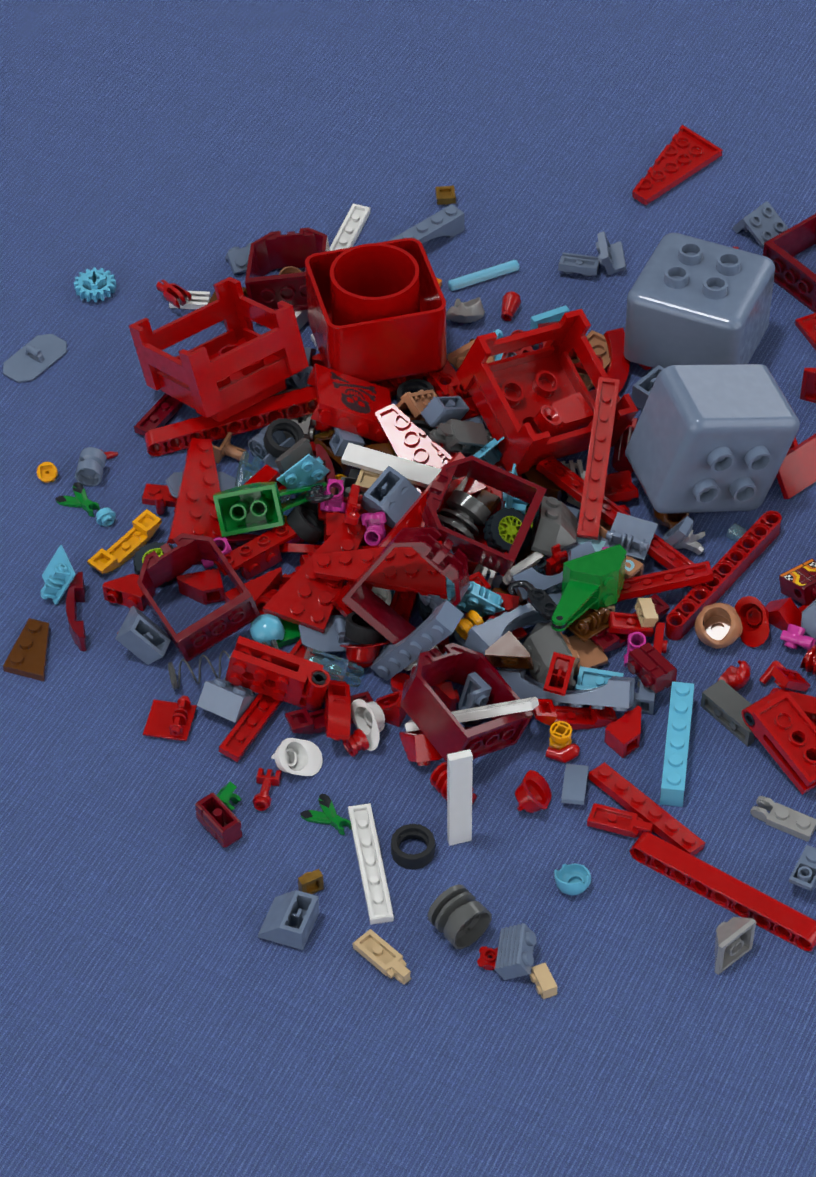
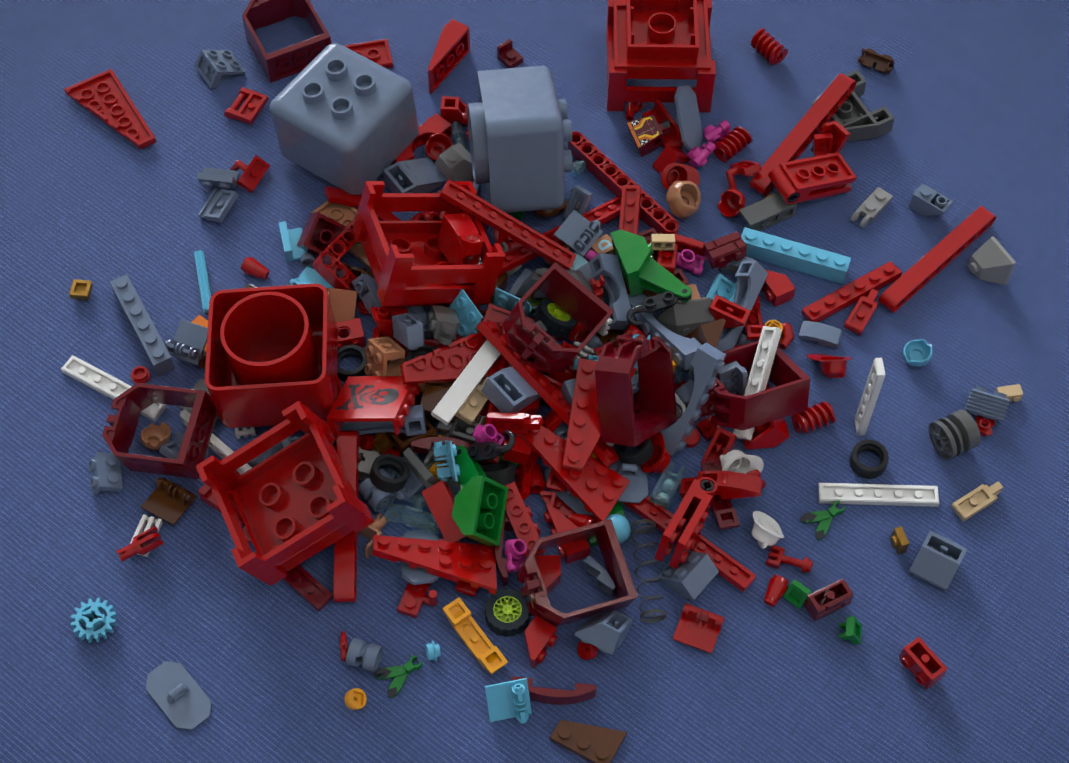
camera: 80 degrees left, 10 degrees up
(157, 912) = (922, 663): none -> red brick
(188, 850) = (853, 630): none -> green tile
(223, 776) = (776, 588): none -> red cone
(374, 526) = (536, 408): dark pink plate -> none
(623, 278) = (252, 173): none -> red plate

